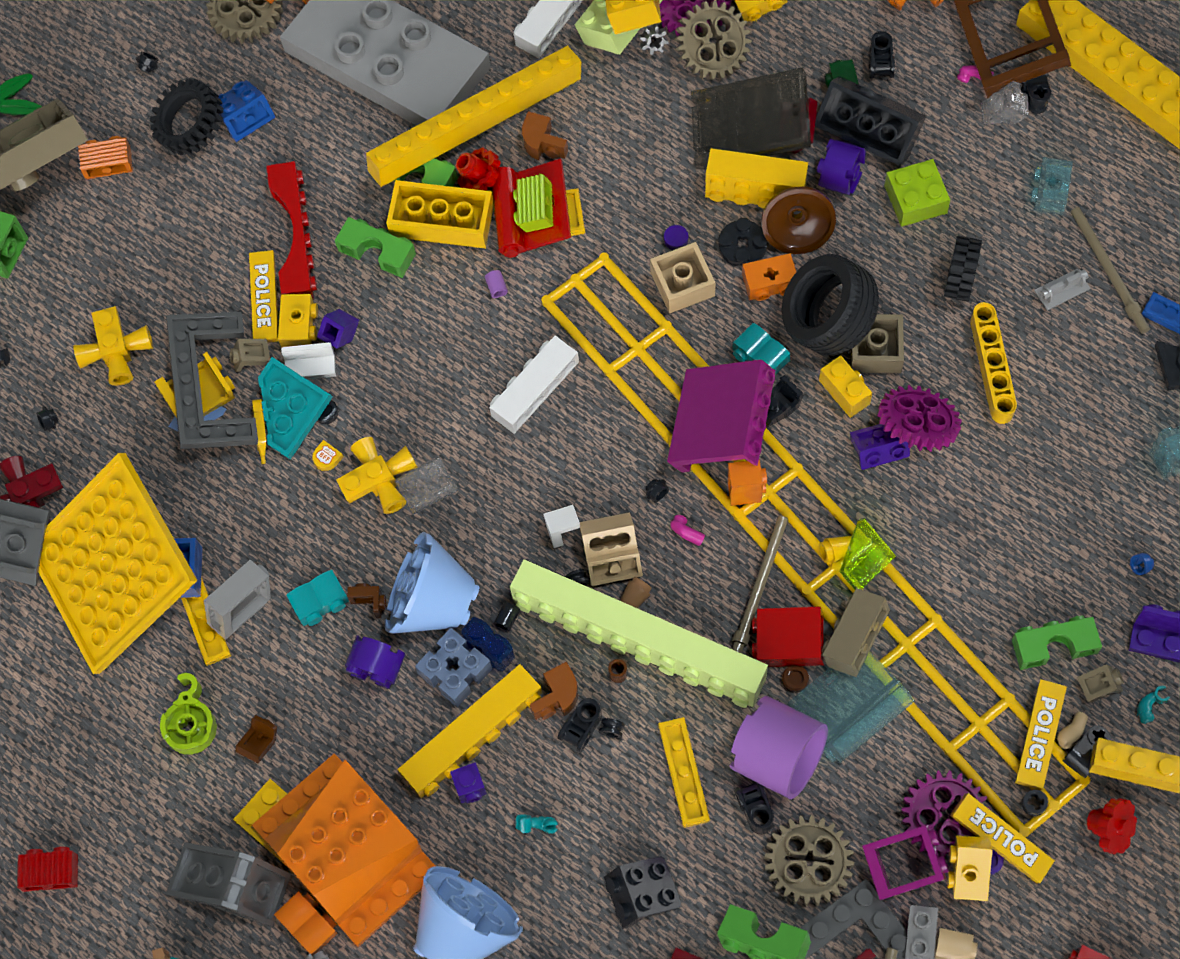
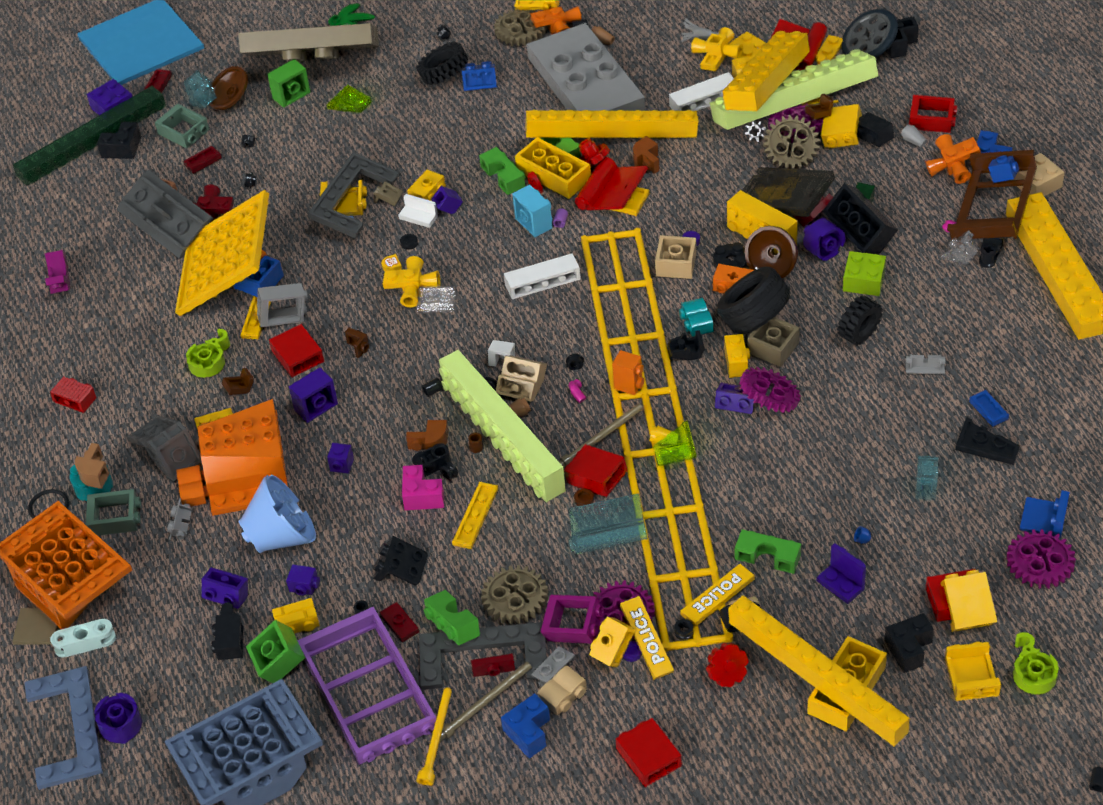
camera: 30 degrees right, 20 degrees down
(95, 228) = (349, 100): none -> clear neon green wing
(105, 157) = (382, 68): orange brick -> none
(113, 346) = (313, 158): yellow brick -> none
(258, 415) = (364, 232): yellow piece -> none
(264, 295) = (425, 161): yellow tile -> none
(284, 185) = (474, 121): red arch -> none
(289, 406) = (388, 228): teal plate -> none
(297, 651) = (296, 350): none -> red brick
(317, 598) = (329, 328): teal brick -> none
(373, 711) = (313, 395): none -> dark purple brick
(374, 660) = (334, 366): dark purple brick -> none
(429, 247) = (534, 182): none -> red tile
(430, 590) = (392, 345): light blue cone -> none
(453, 683) = (379, 396): sand blue brick -> none
(462, 294) = (532, 210): none -> medium azure brick
(470, 731) = (362, 432): yellow brick -> none
(491, 645) = (408, 393): clear blue brick -> none
(526, 822) = (359, 496): teal arm -> none
(533, 203) = (612, 181): lime brick -> none
(595, 781) = (421, 493): none -> dark pink brick
(722, 414) = (639, 327): magenta panel -> none
(754, 802) = (504, 551): black piece -> none
(779, 747) = (537, 515): medium lavender brick -> none
(855, 632) = (637, 482): dark tan brick -> none
(881, 59) = (897, 194): black piece -> none
(993, 352) = (844, 384): yellow beam -> none
(1053, 173) = (960, 305): clear light blue brick -> none
(1101, 682) = (782, 586): dark tan bracket -> none
(1132, 308) = (965, 394): dark tan bar -> none
(1144, 708) = (801, 616): teal arm -> none

